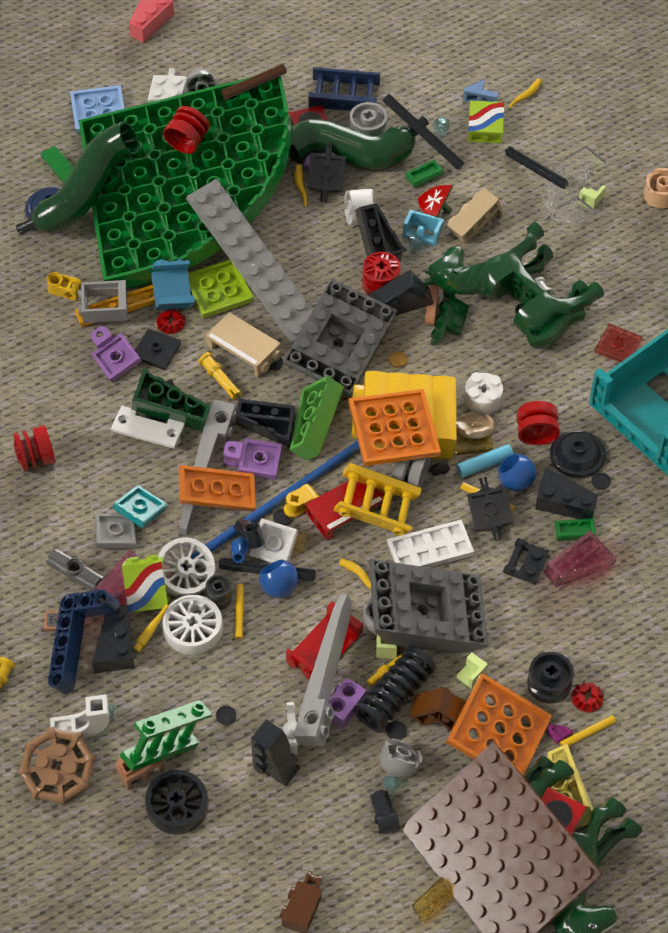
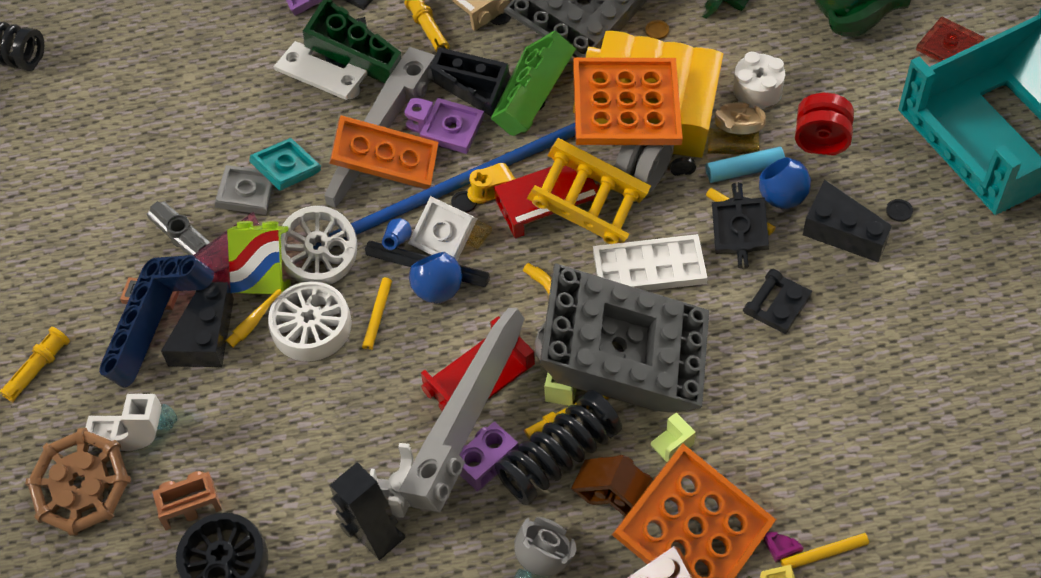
camera: 15 degrees right, 0 degrees up
(34, 448) = (177, 76): red wheel -> none
(165, 746) = (221, 479): green fence -> none
(219, 591) = (354, 282): pearl dark grey wheel -> none
(226, 715) = (323, 448): black piece -> none
(249, 532) = (411, 213): black piece -> none
(396, 730) = (550, 505): black piece -> none
(550, 677) = (782, 464): black wheel -> none
(573, 528) = (853, 268): green plate -> none
(577, 454) = (873, 172): black piece -> none
(579, 561) = (852, 309): clear pink wedge -> none
(593, 703) = (837, 512): red gear -> none

